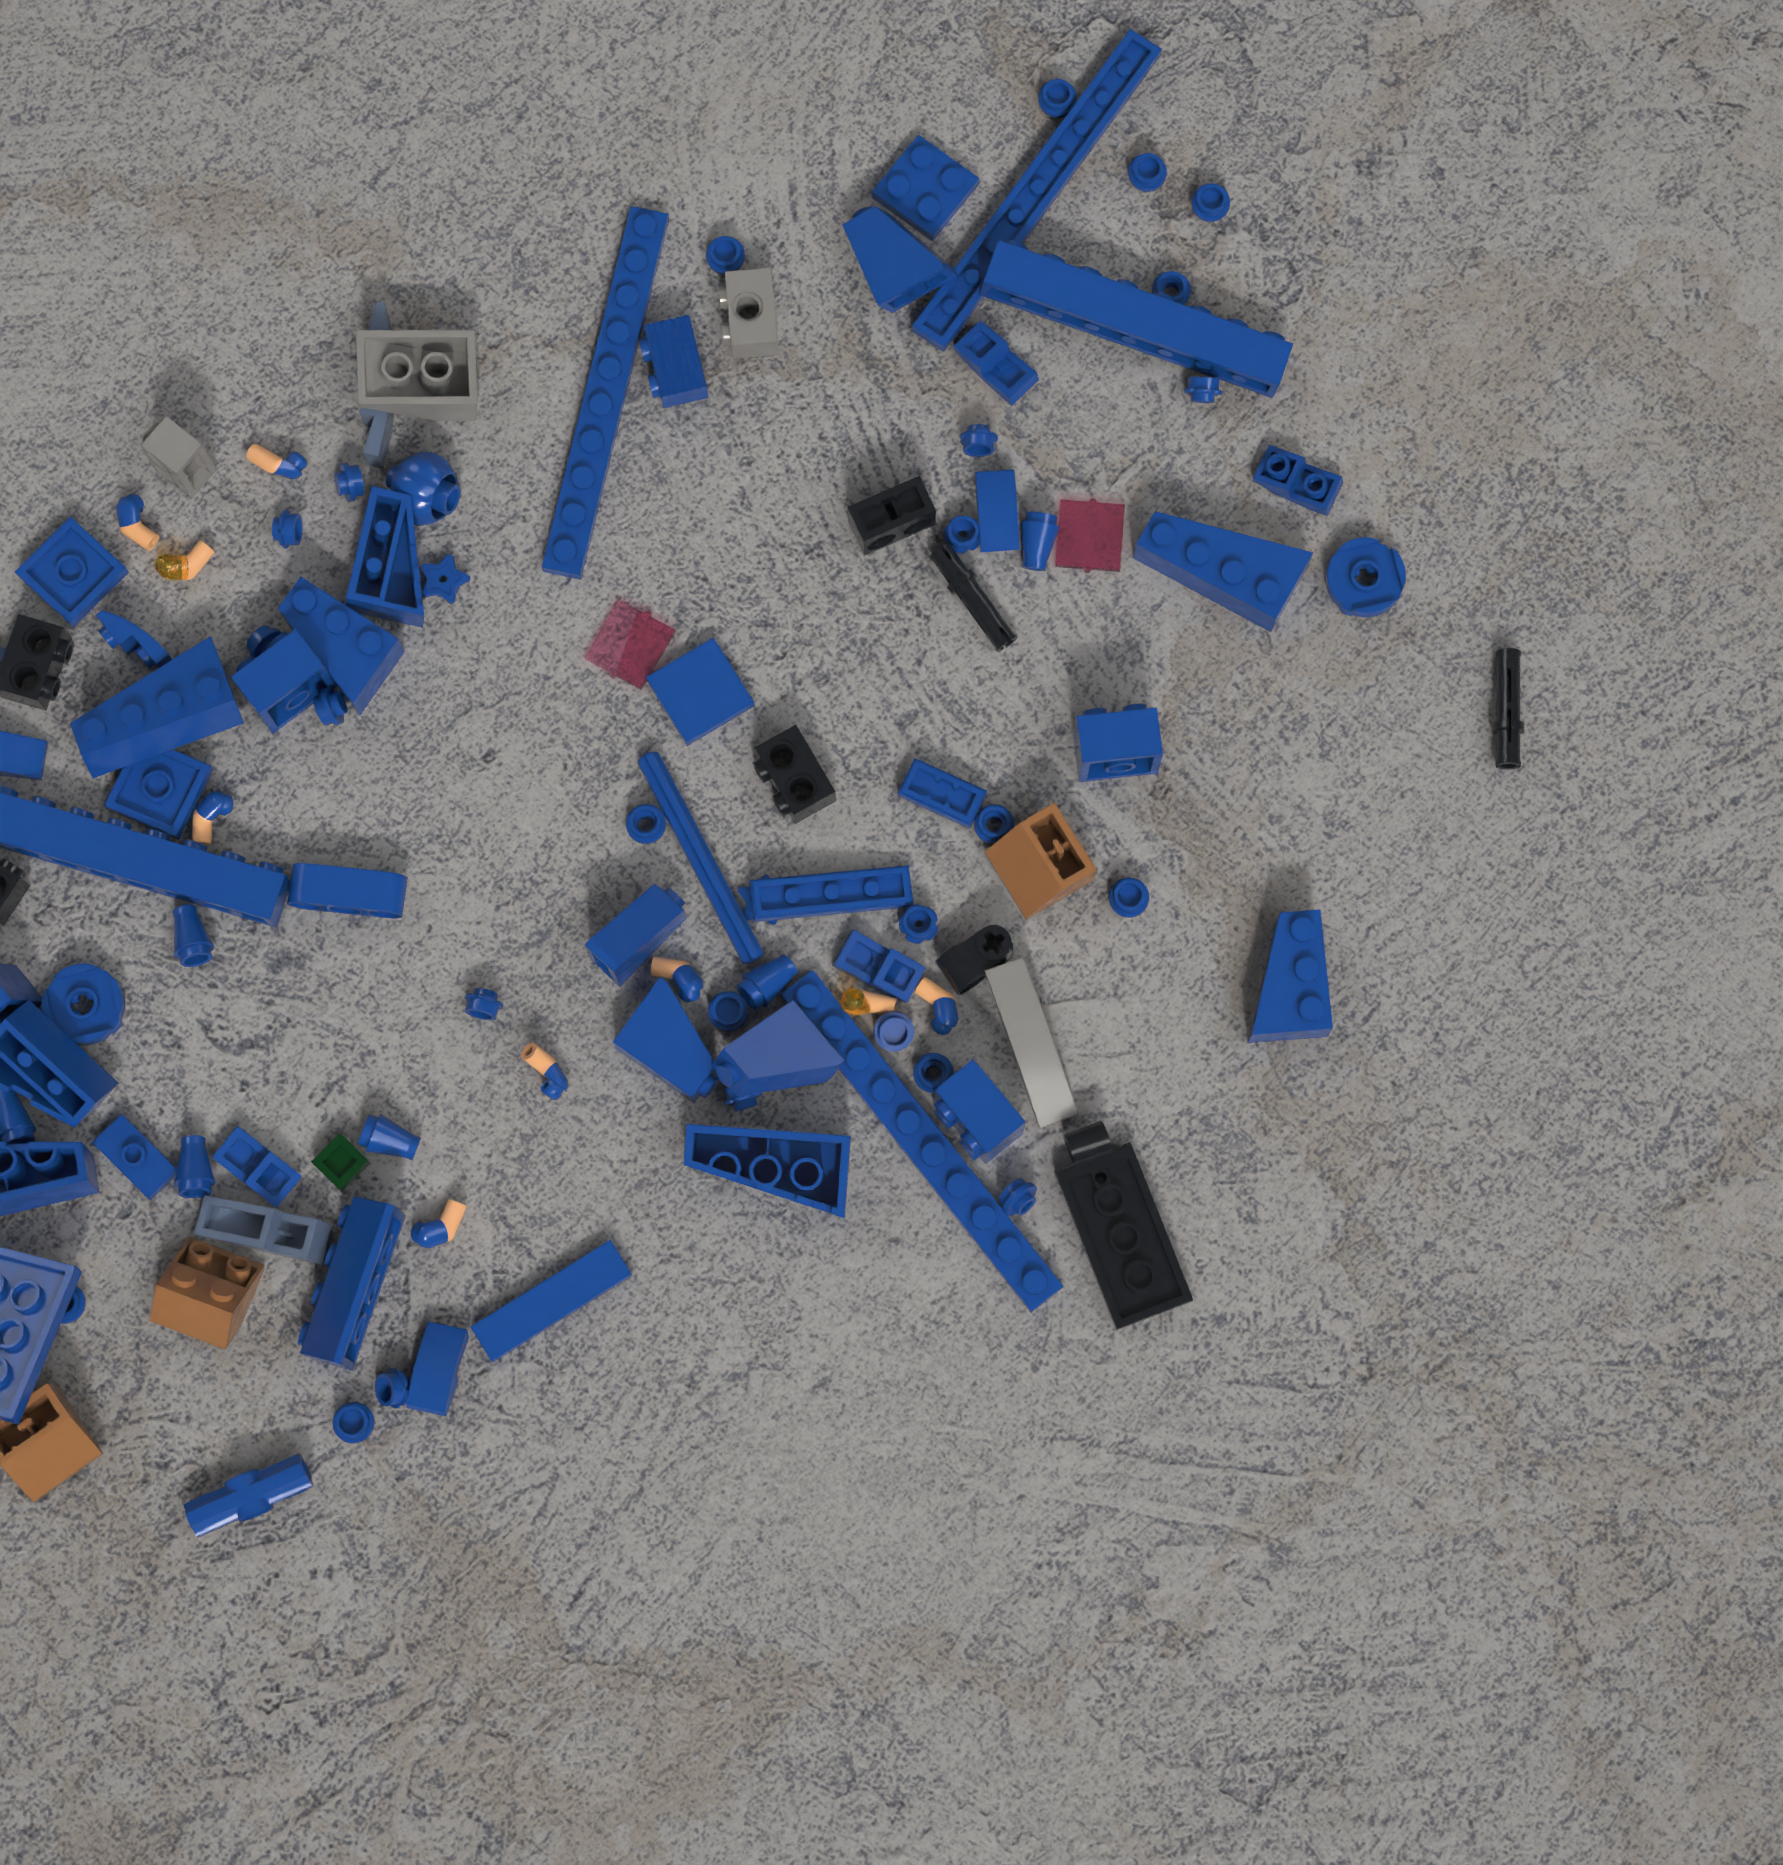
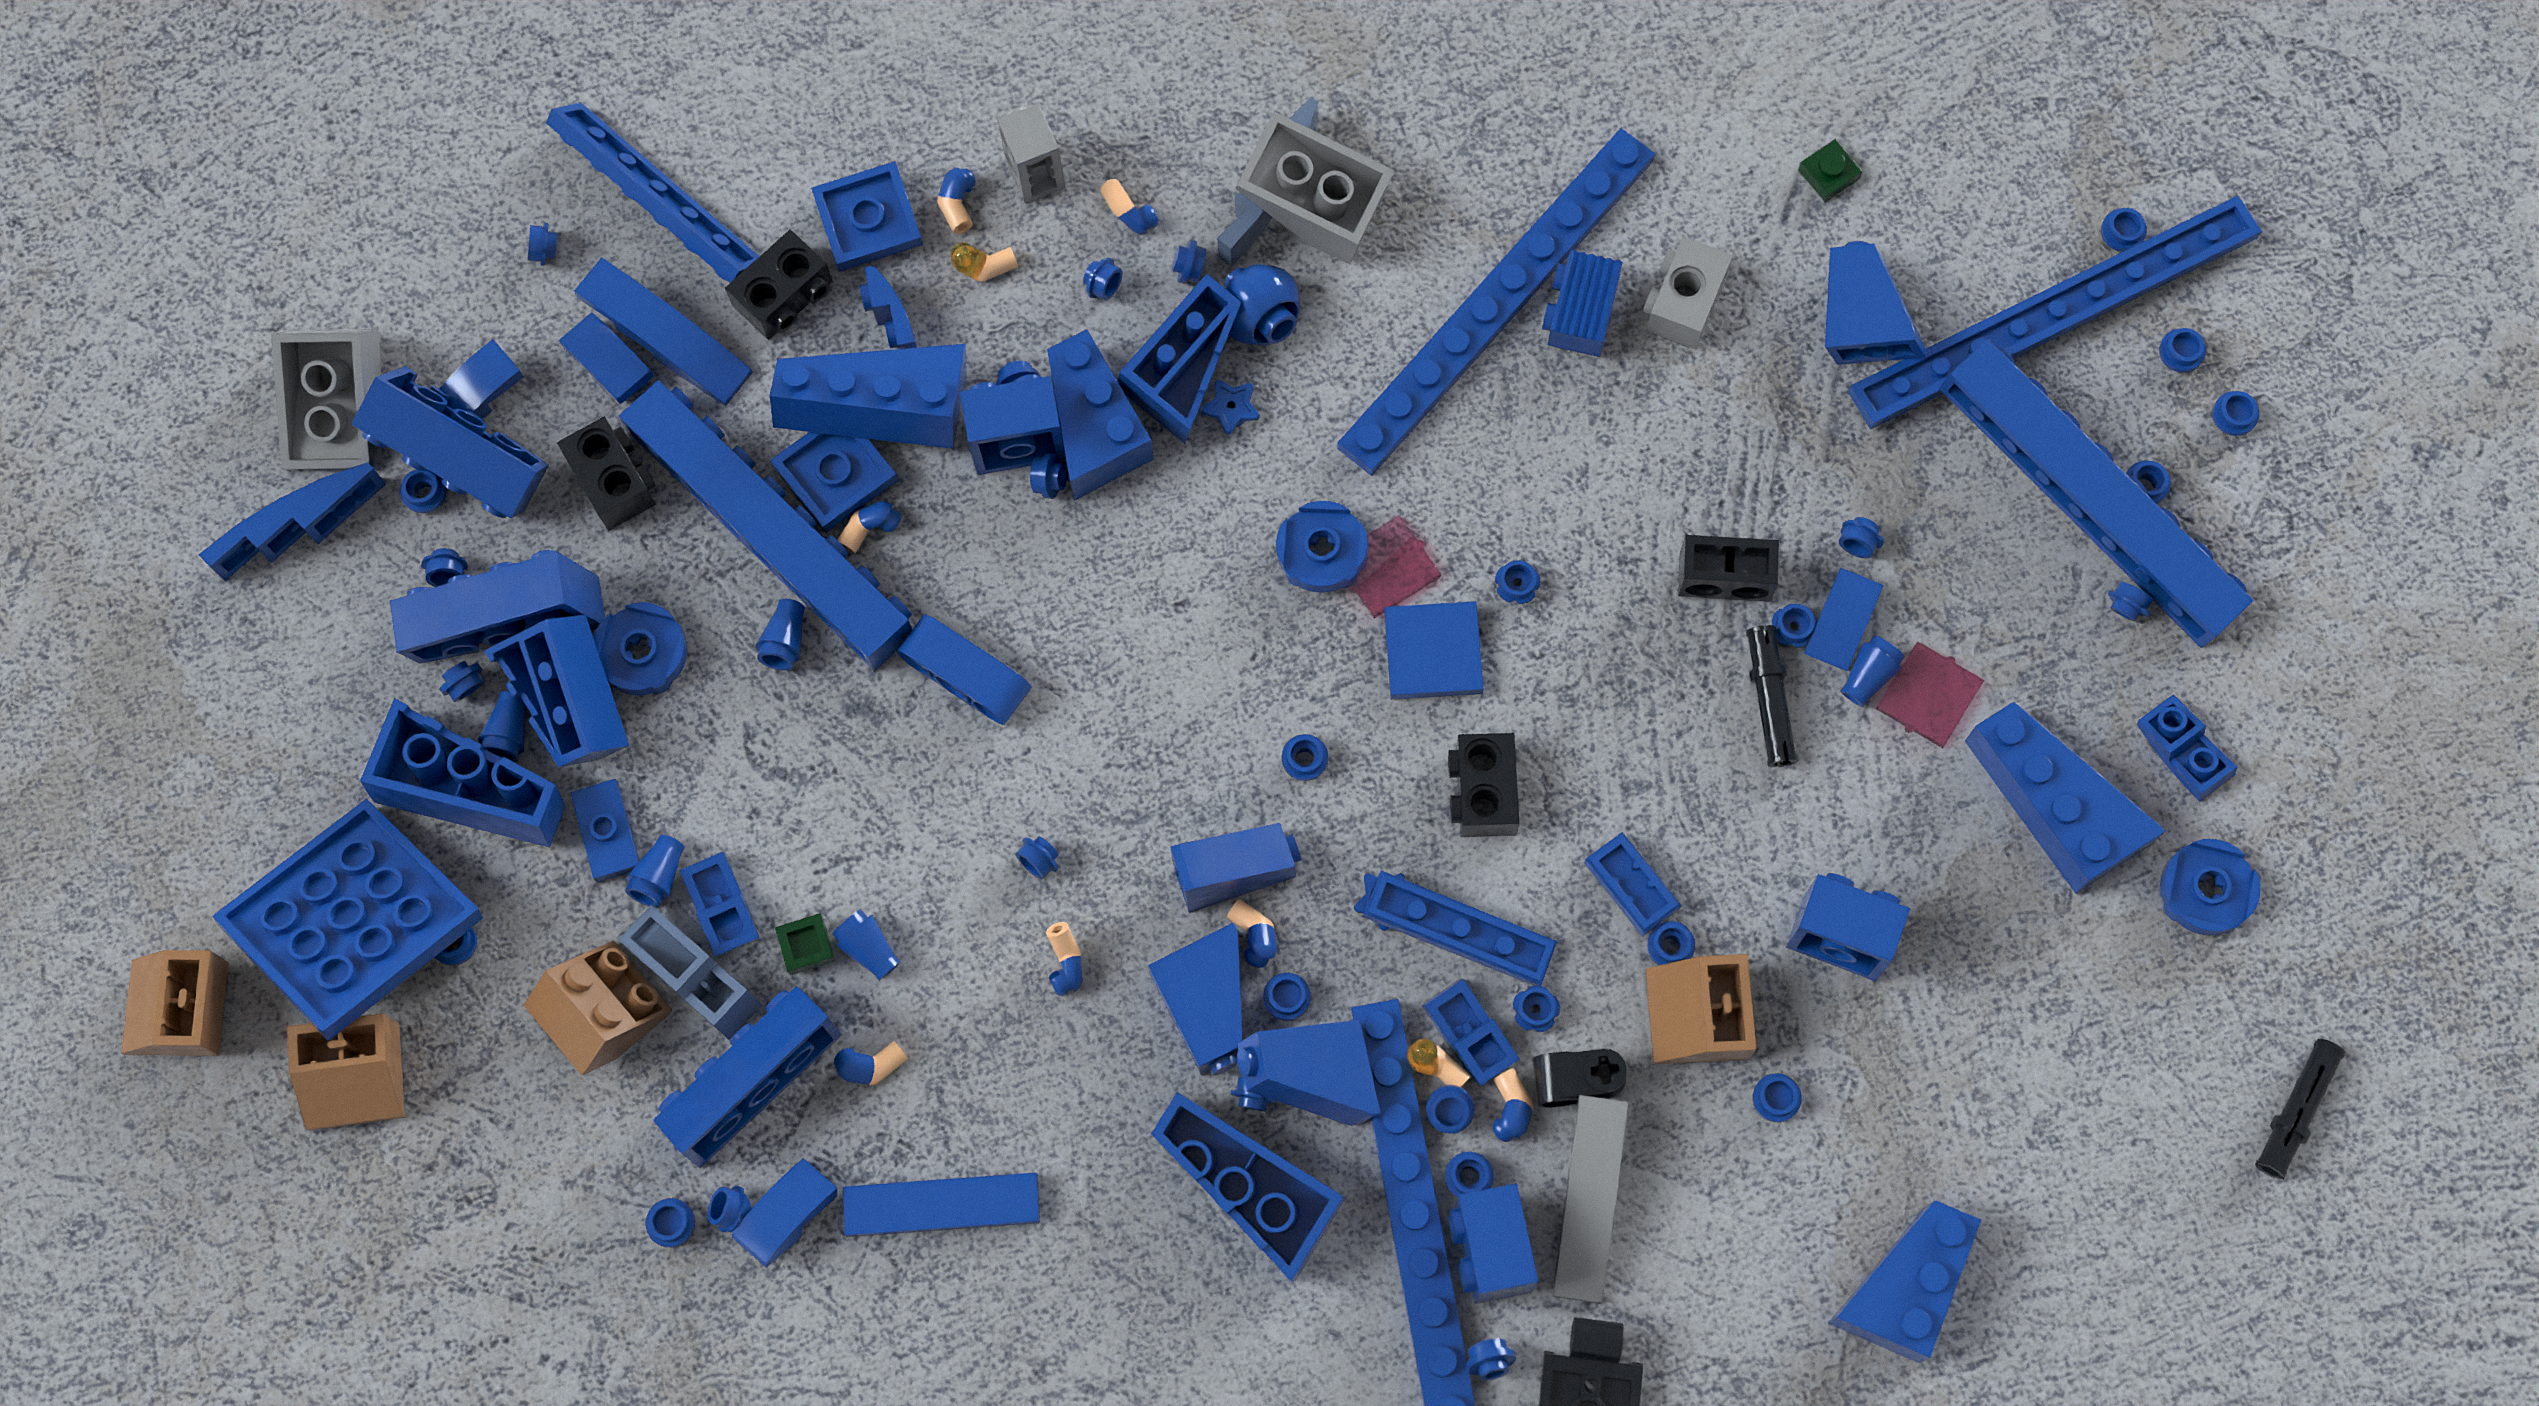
camera: 30 degrees right, 5 degrees down
(248, 1495) = (522, 1241): blue piece -> none
(552, 647) = (1326, 572): none -> blue plate
(700, 858) = (1342, 821): blue axle -> none
(725, 254) = (1692, 221): blue plate -> none
(736, 596) = (1517, 570): none -> blue plate
(766, 981) = (1342, 986): blue cone -> none
(809, 160) = (1830, 170): none -> dark green plate
(925, 188) = (1937, 254): blue plate -> none
(995, 363) = (1919, 467): blue slope -> none

